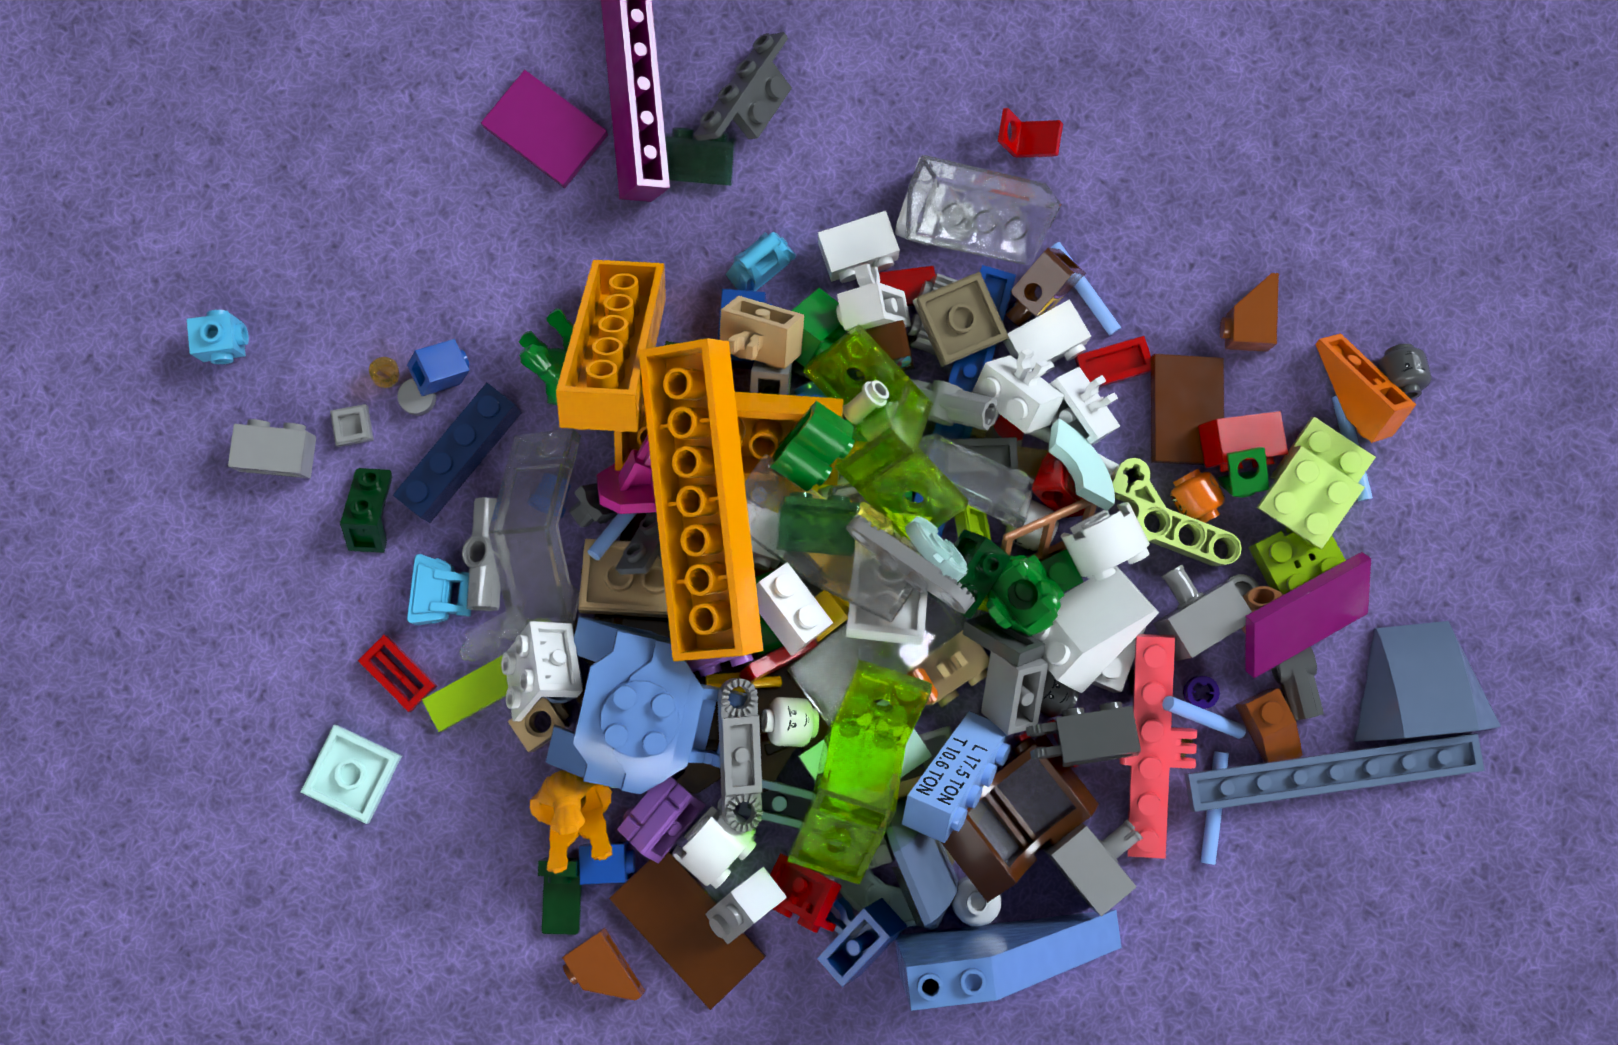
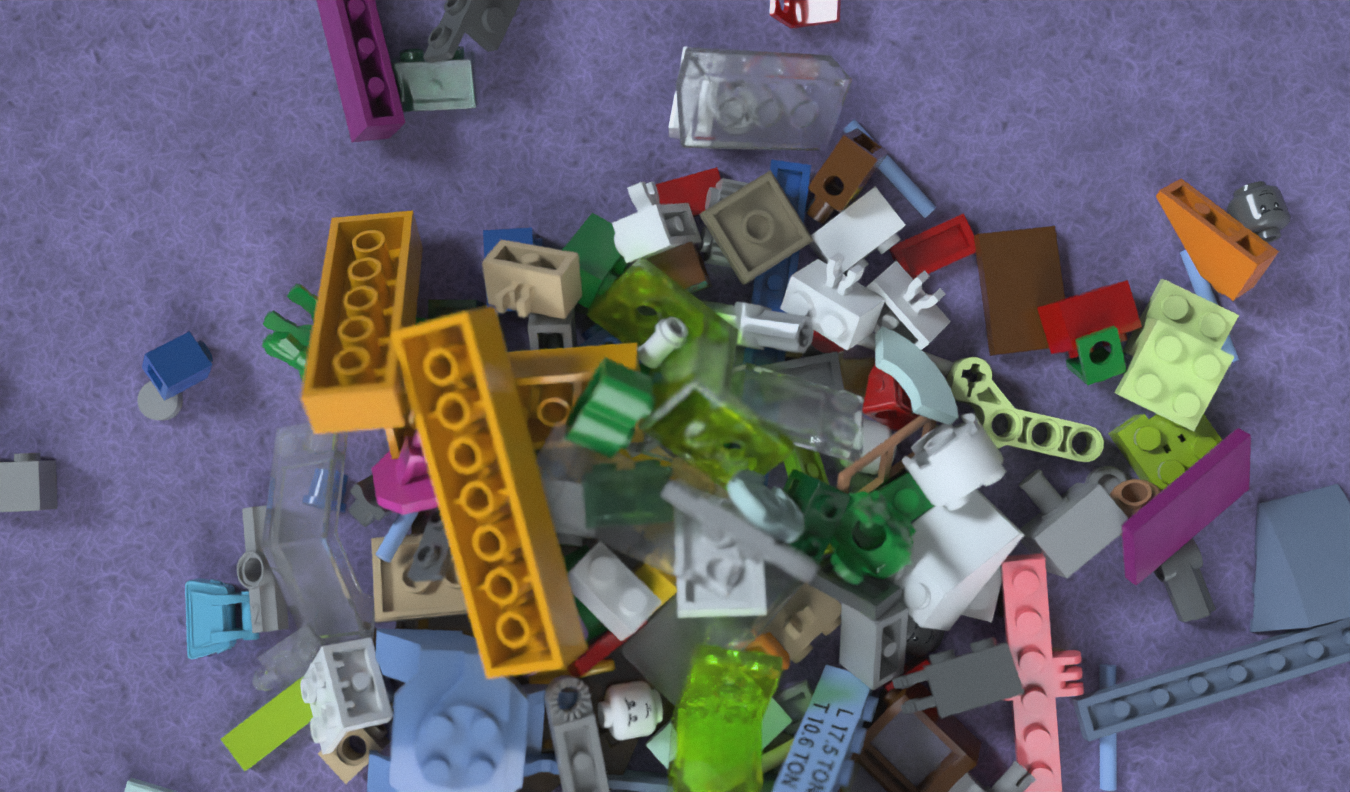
camera: 10 degrees left, 5 degrees up
(351, 425) = (92, 443): light grey tile -> none
(364, 509) = (120, 537): dark green bracket -> none
(388, 367) = (119, 370): clear yellow hinge -> none
(419, 694) = (199, 699): red tile -> none
(457, 453) = (214, 460): dark blue brick -> none
(544, 128) = (255, 71): magenta tile -> none
(760, 262) = (522, 192): medium azure piece -> none
(858, 243) = (630, 158): white brick -> none
(1198, 495) = (1046, 387): orange head -> none
(1201, 681) = (1077, 616): dark purple bush -> none
(1203, 717) = (1085, 635): light blue bar -> none
(1254, 319) = (1084, 176): dark orange slope -> none
(1271, 725) = (1158, 629): dark orange slope -> none

